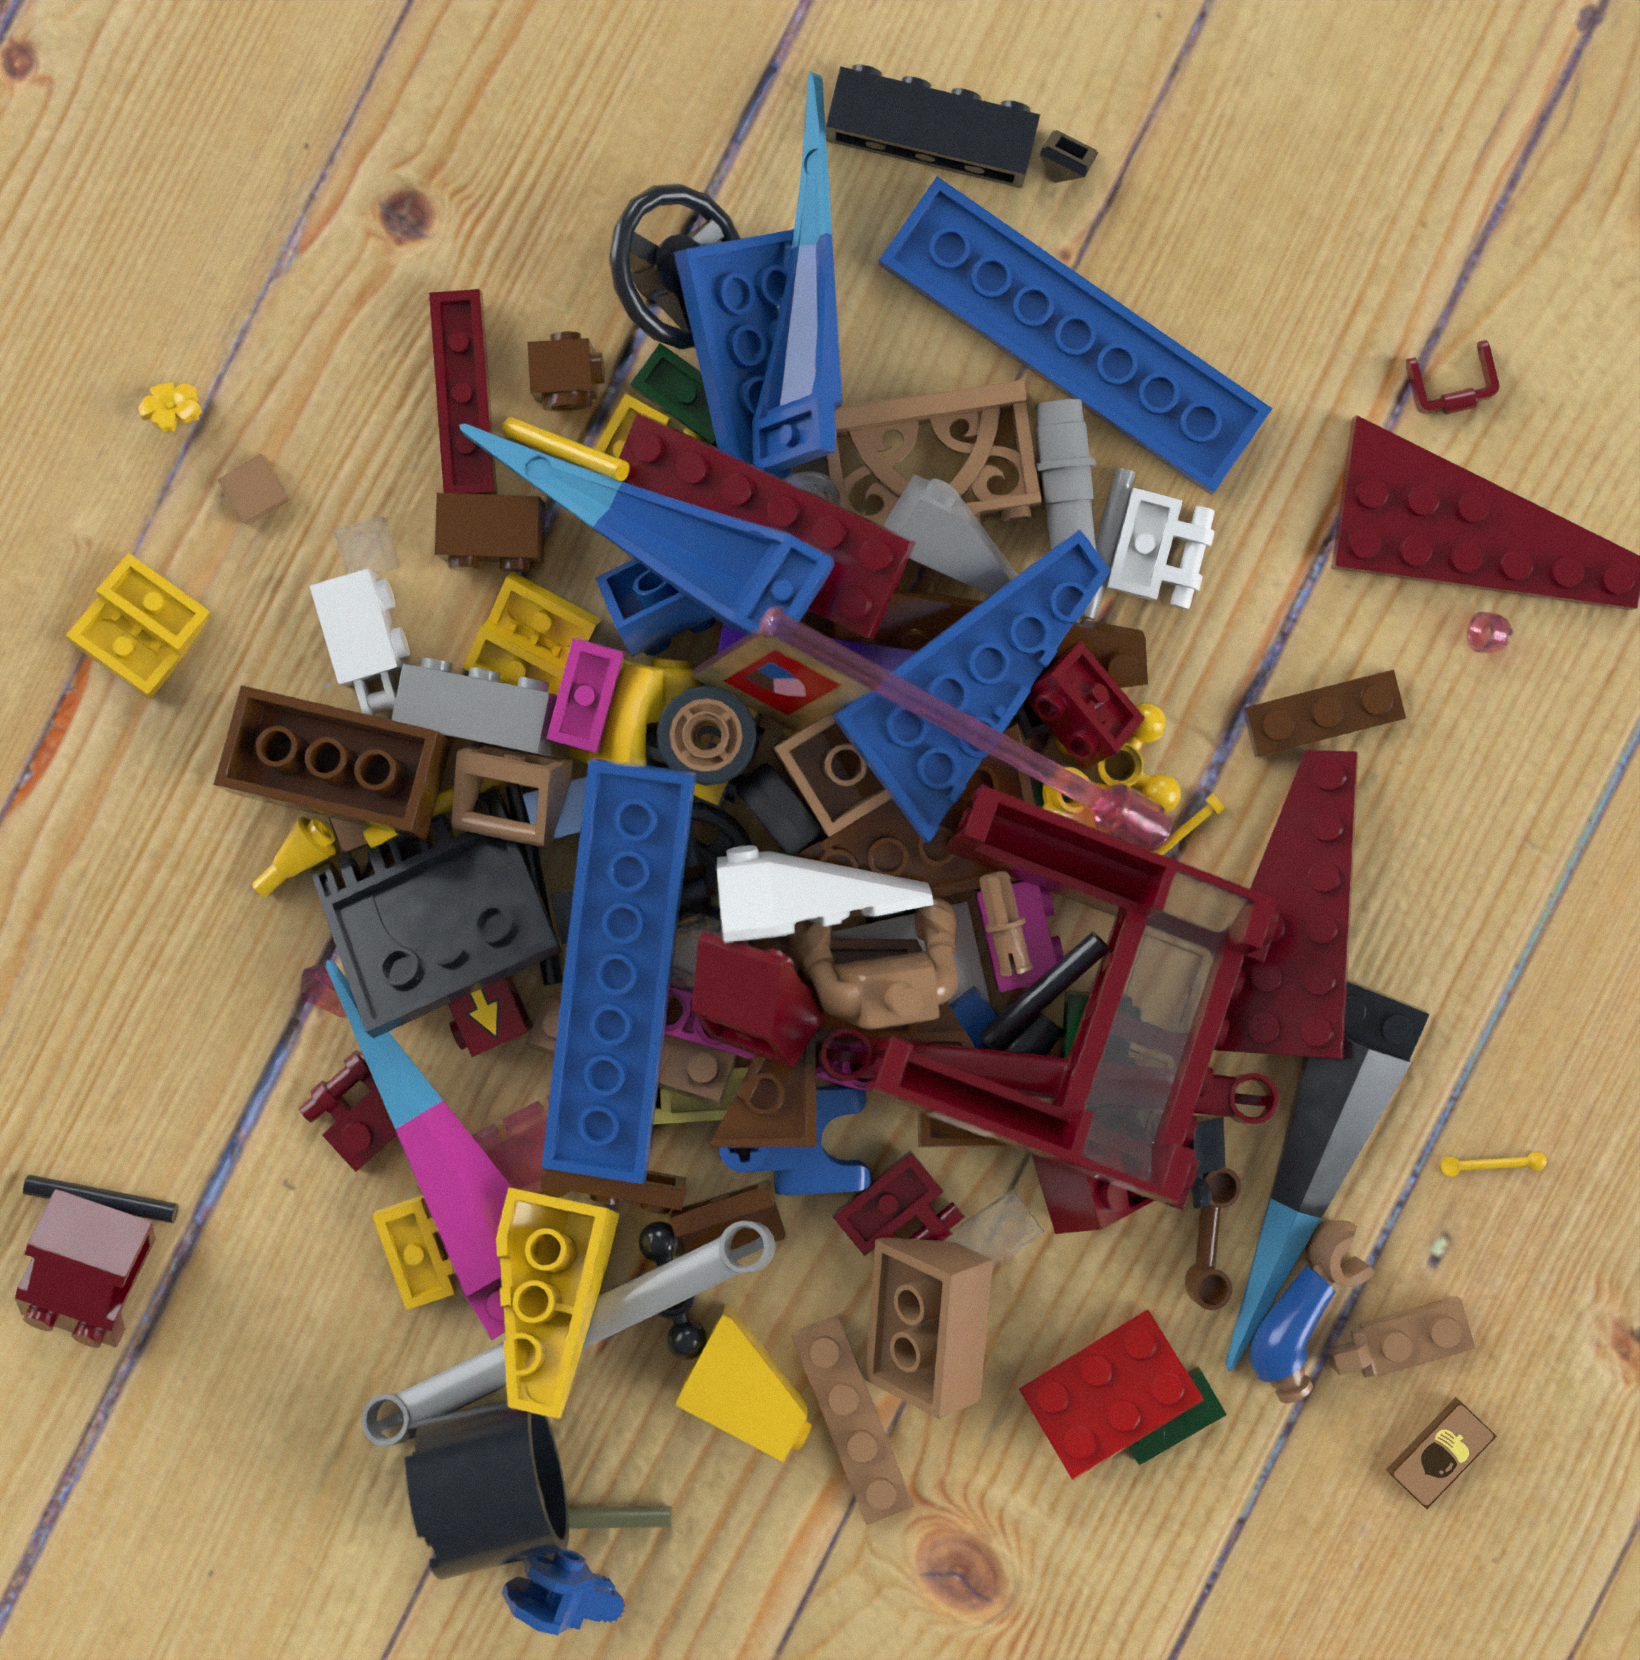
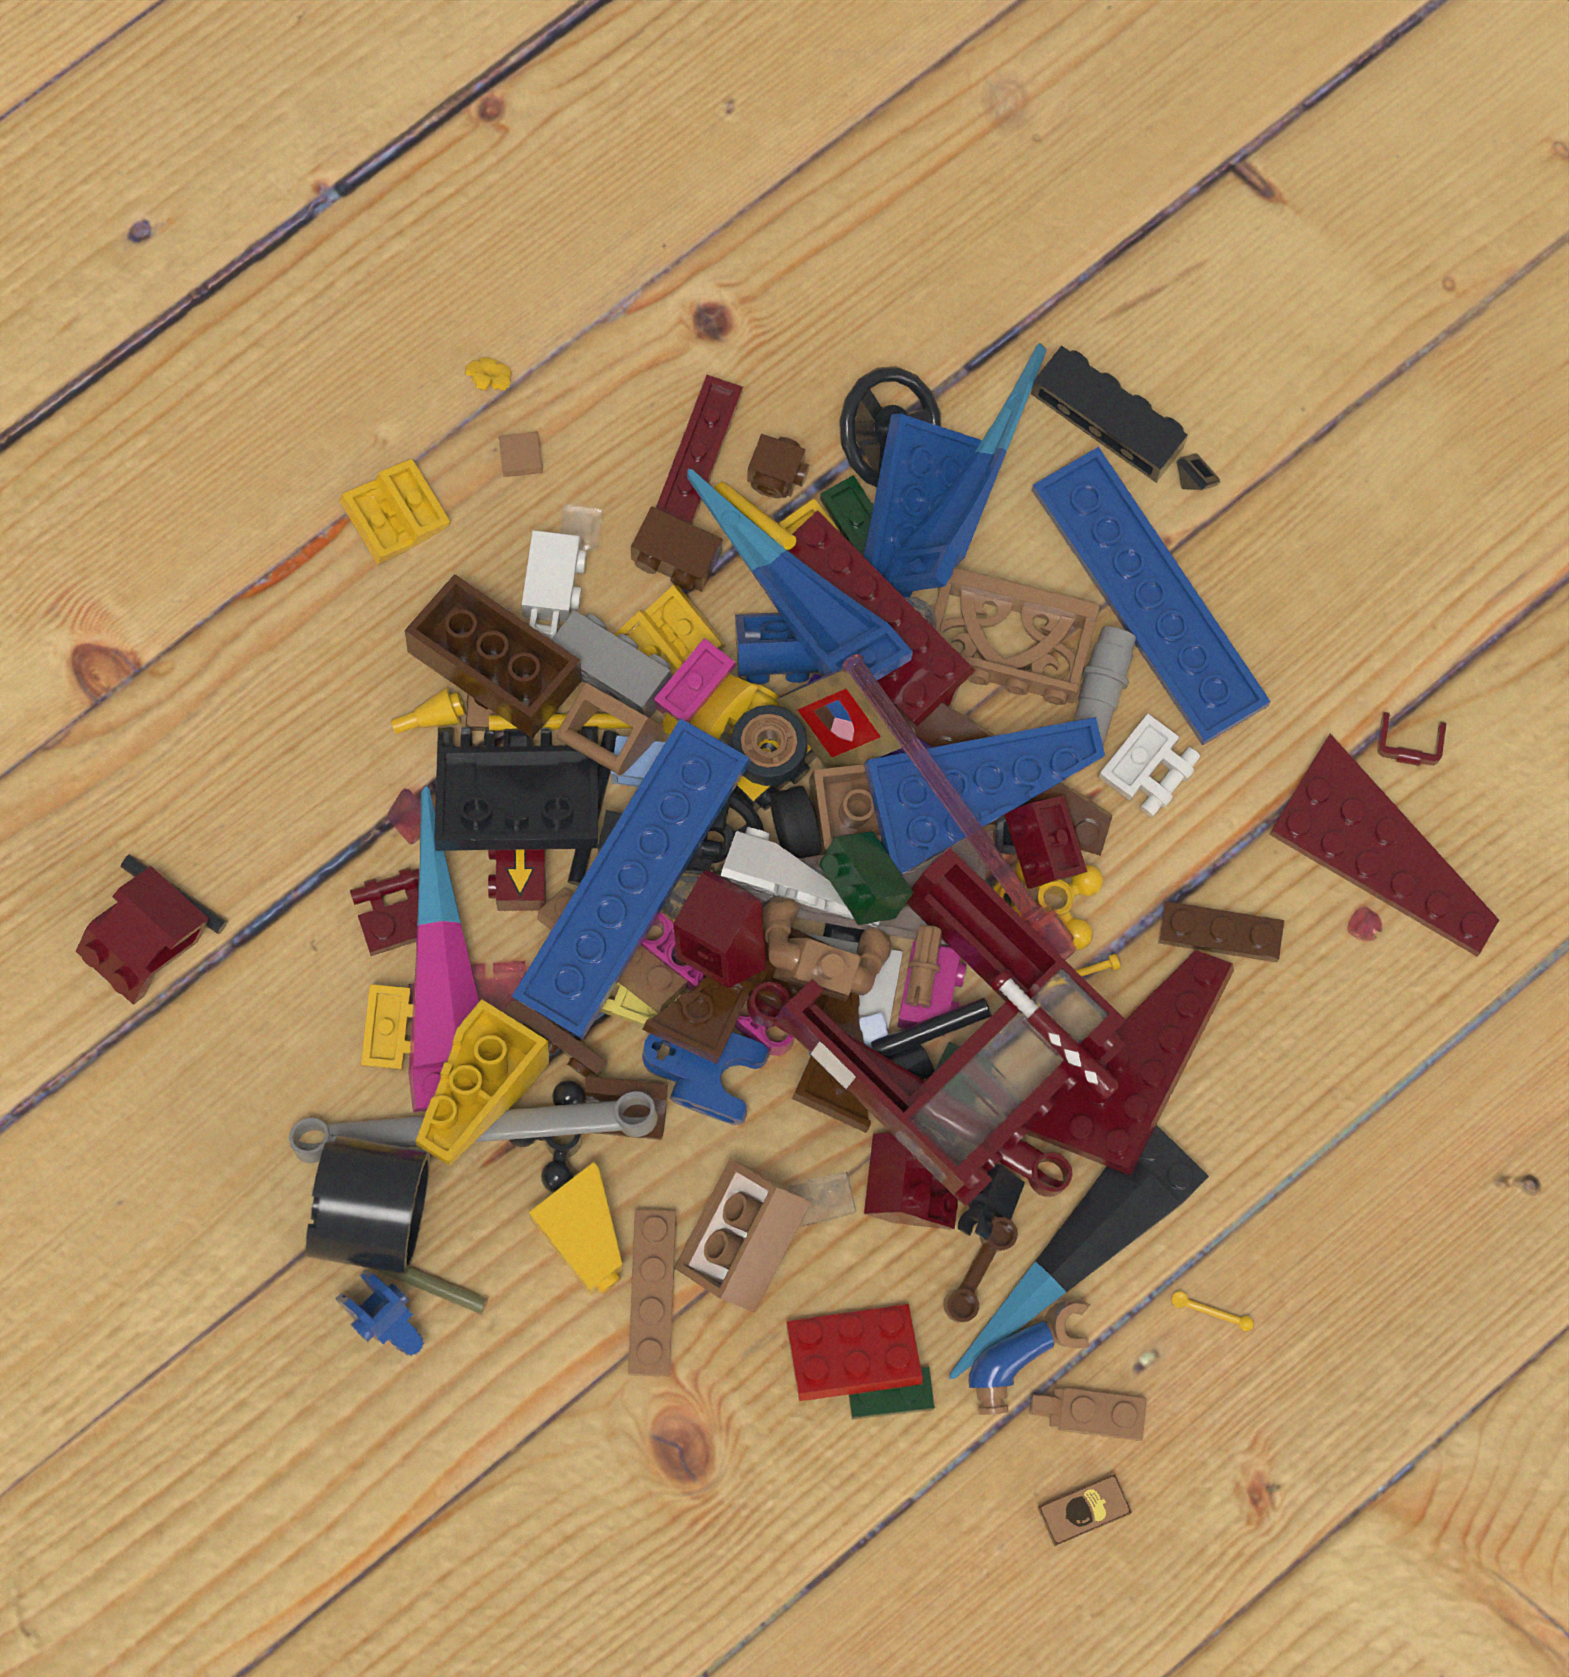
camera: 15 degrees right, 15 degrees down
(892, 1201) = (755, 1142): dark red plate -> none
(894, 859) = (865, 878): none -> dark green brick
(948, 535) = (1000, 682): light grey slope -> none
(1110, 528) = (1112, 745): light grey bar -> none
(1212, 954) = (1067, 1047): none -> dark red piece

